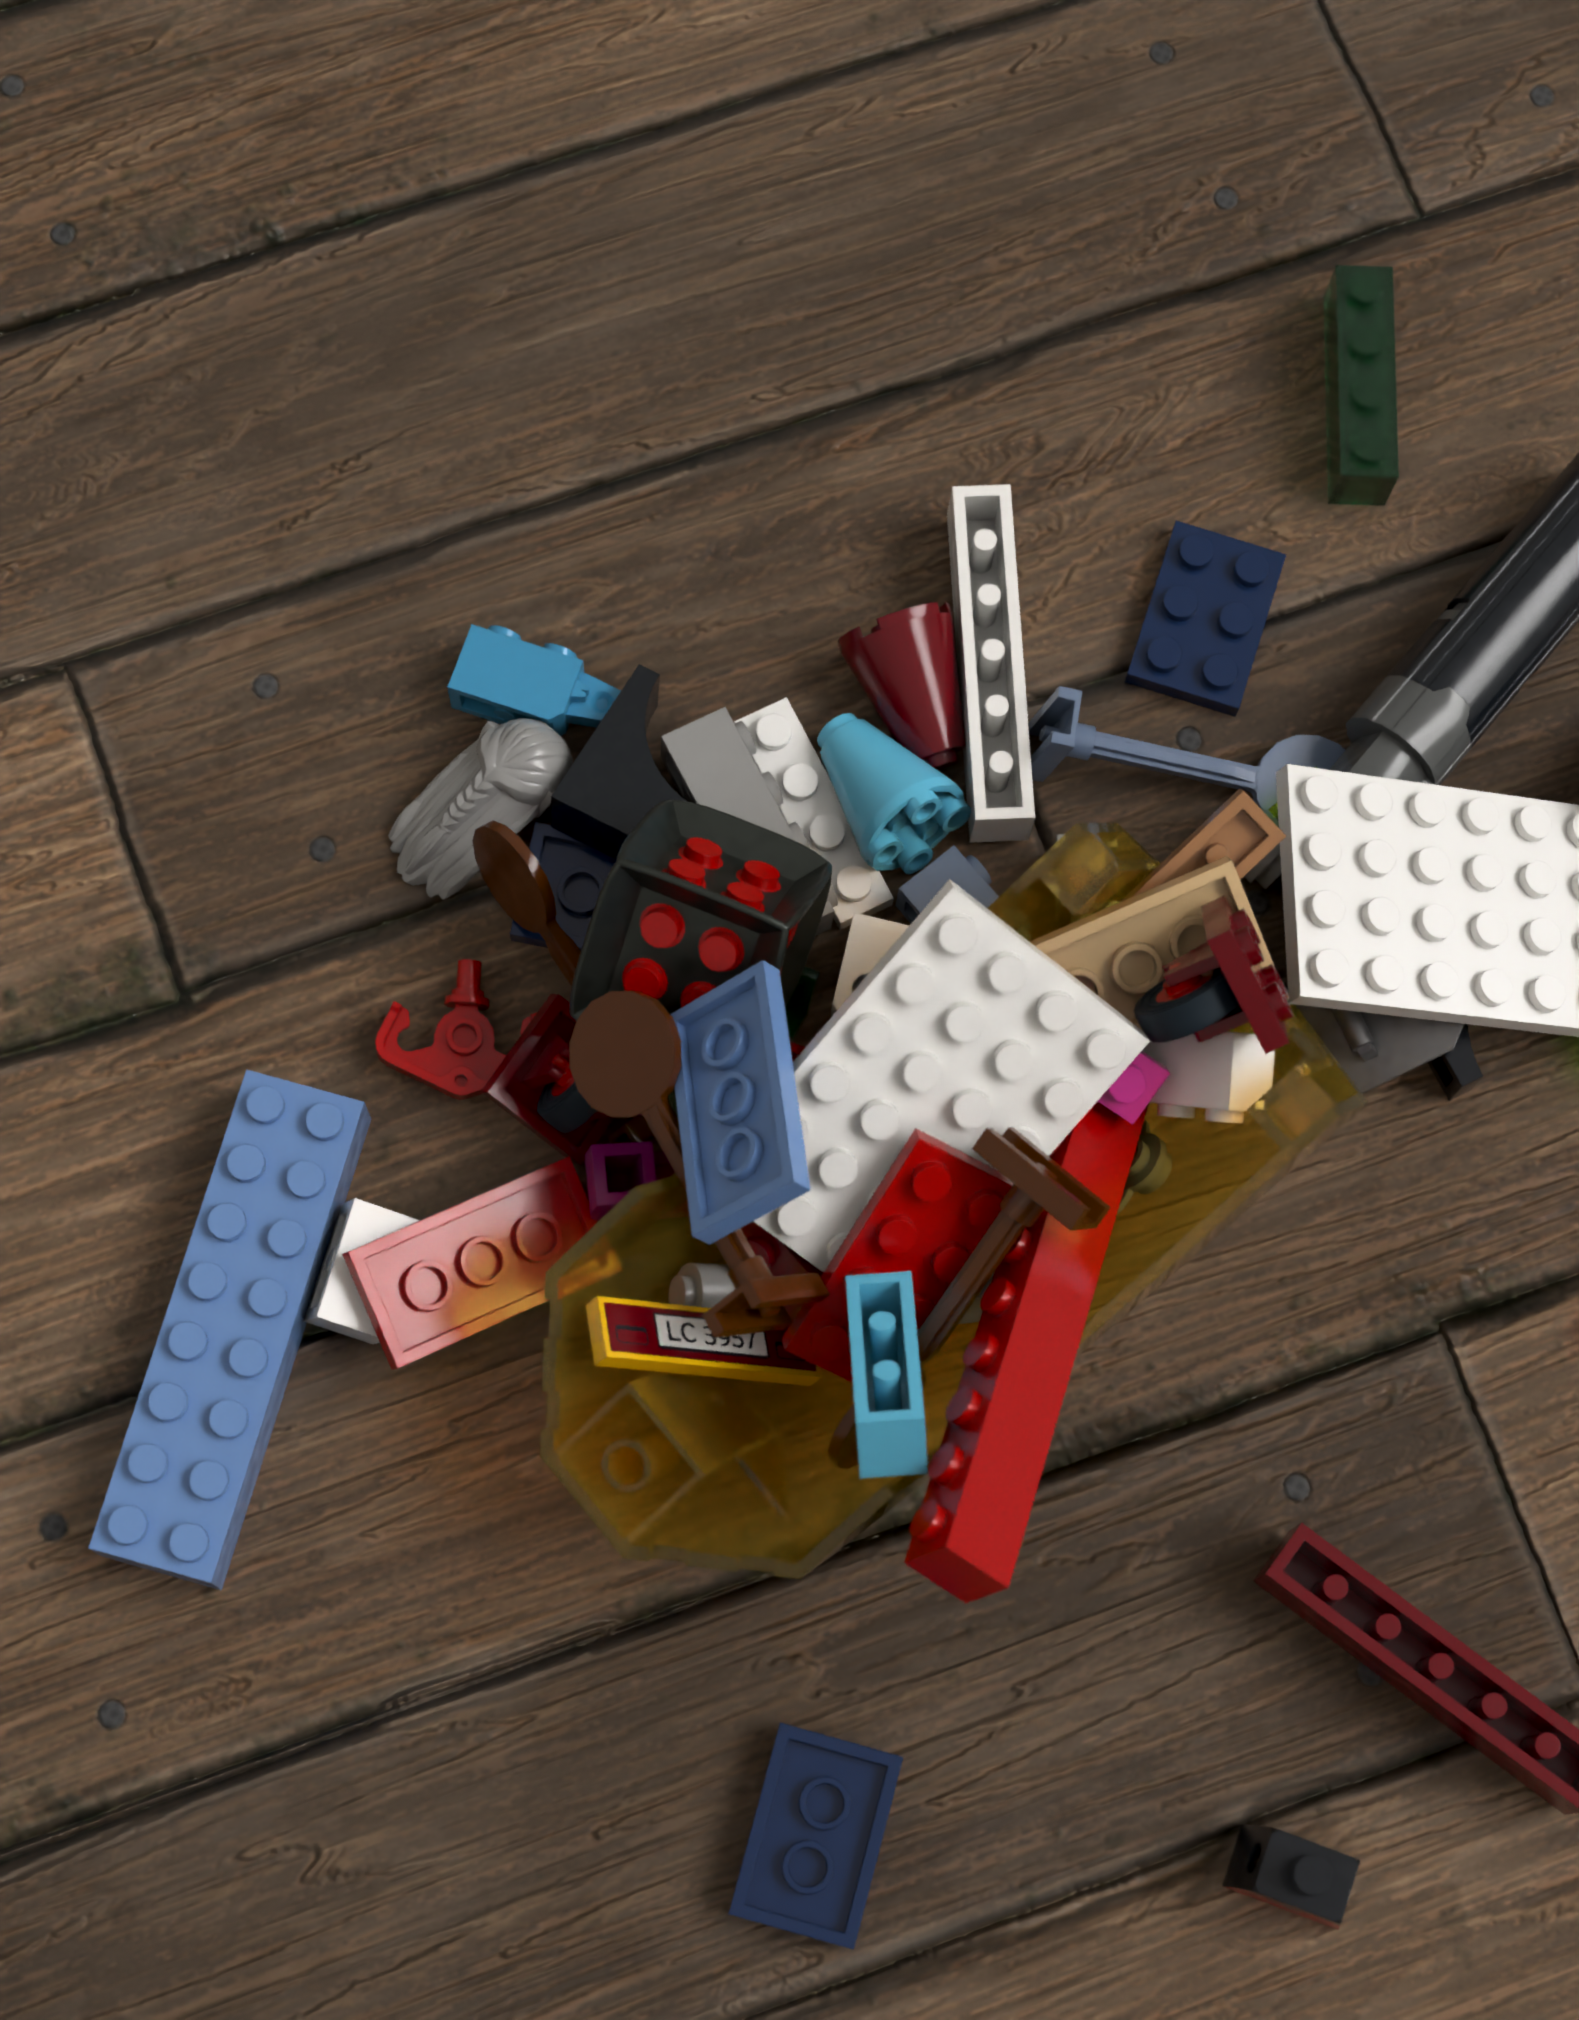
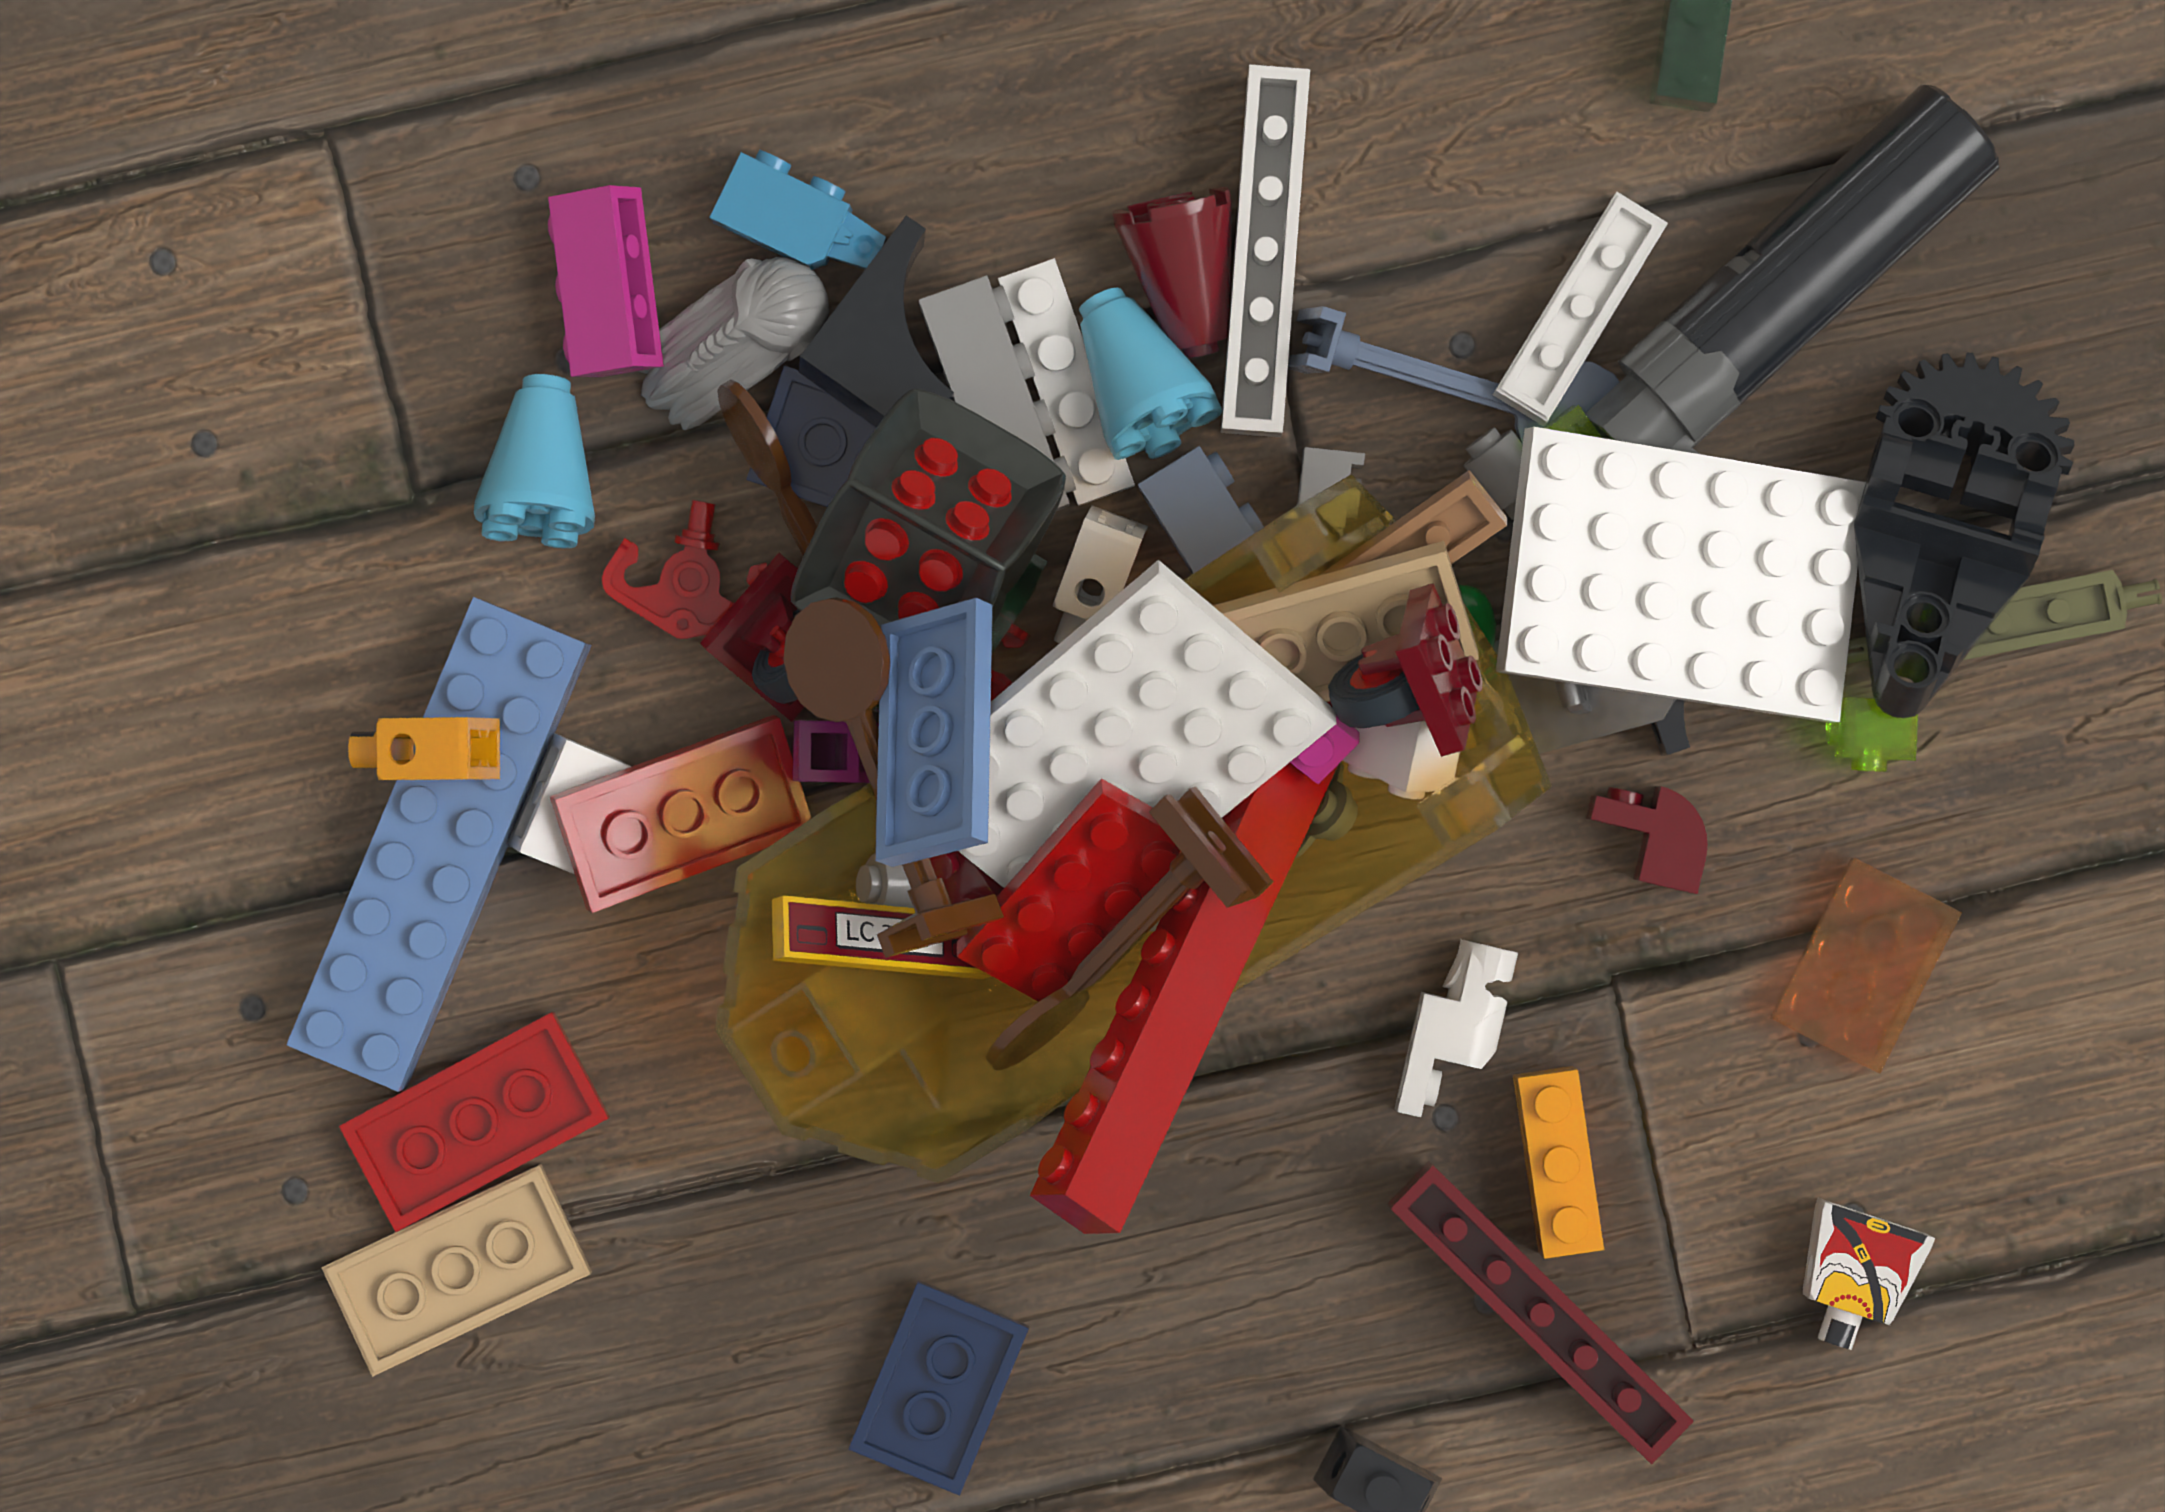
camera: 10 degrees right, 15 degrees up
(214, 1211) = (444, 748): none -> light orange torso
(289, 1777) = (456, 1270): none -> tan tile
(294, 1613) = (474, 1121): none -> red plate
(301, 949) = (538, 469): none -> medium azure cone
(350, 762) = (605, 281): none -> dark pink brick
(886, 1375) = (1040, 1011): medium azure brick -> none
(1205, 618) = (1498, 218): dark blue plate -> none
(1294, 1387) = (1455, 1027): none -> white plate
(1298, 683) = (1580, 309): none -> white tile
(1423, 1511) = (1558, 1162): none -> light orange brick
(1477, 1171) = (1673, 837): none -> dark red brick

